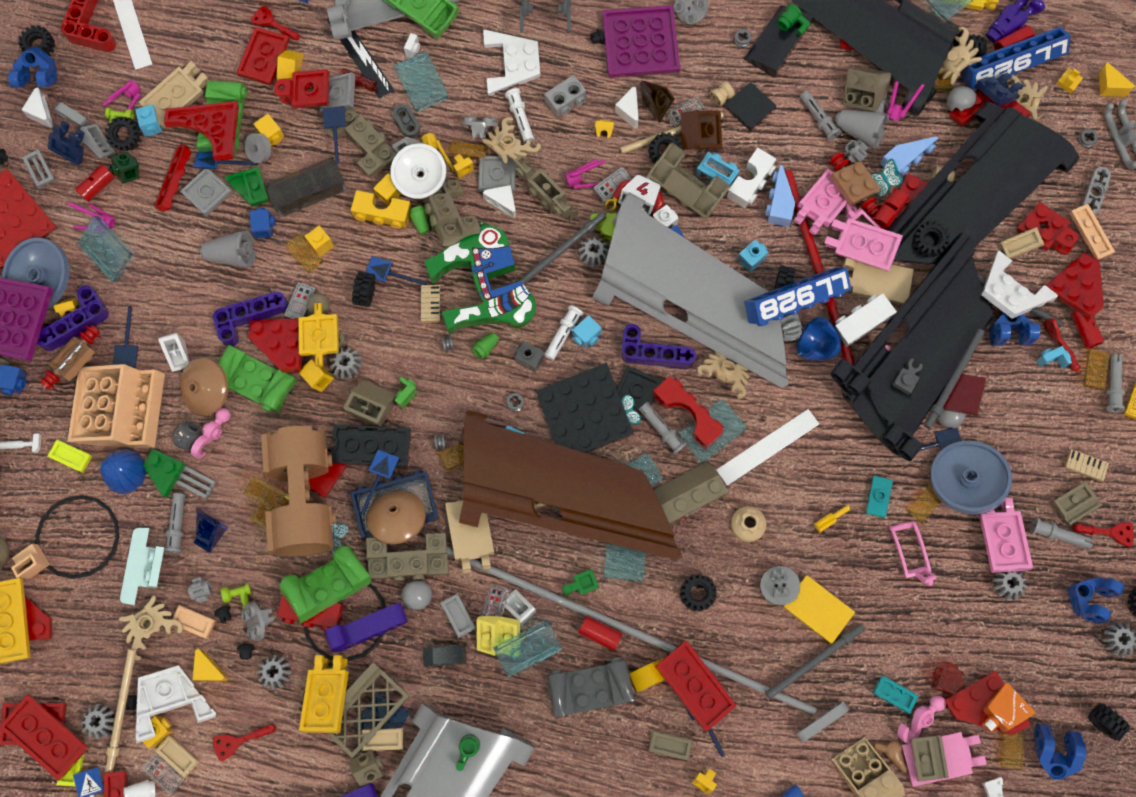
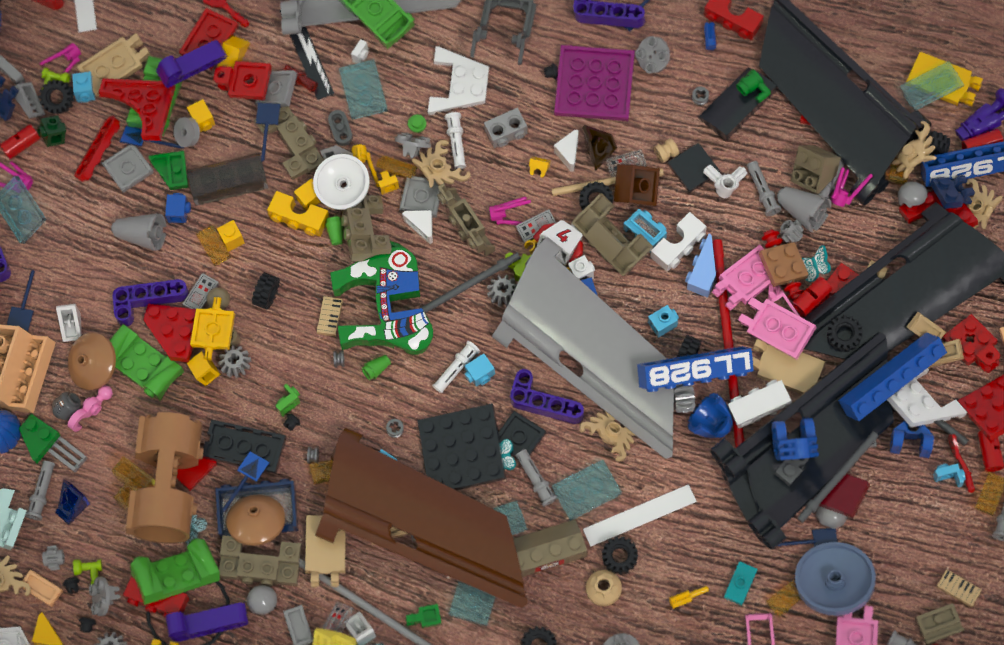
camera: 15 degrees right, 5 degrees down
(237, 88) = (177, 70): none -> dark purple beam
(369, 403) = (250, 405): dark tan slope -> none
(381, 269) = (287, 274): piece -> none
(412, 413) = (291, 422): none -> black piece
(479, 105) = (417, 123): none -> bright green plate
(529, 356) = (417, 385): dark grey brick -> none
(672, 394) = (550, 446): red arch -> none
(762, 478) = (620, 543): none -> black tyre
(785, 116) = (730, 180): none -> white axle
(909, 154) = (845, 243): light blue slope -> none
(911, 358) = (794, 448): none -> blue piece
(985, 273) = (892, 376): none -> blue brick
(1003, 222) = (921, 325): none -> tan tile

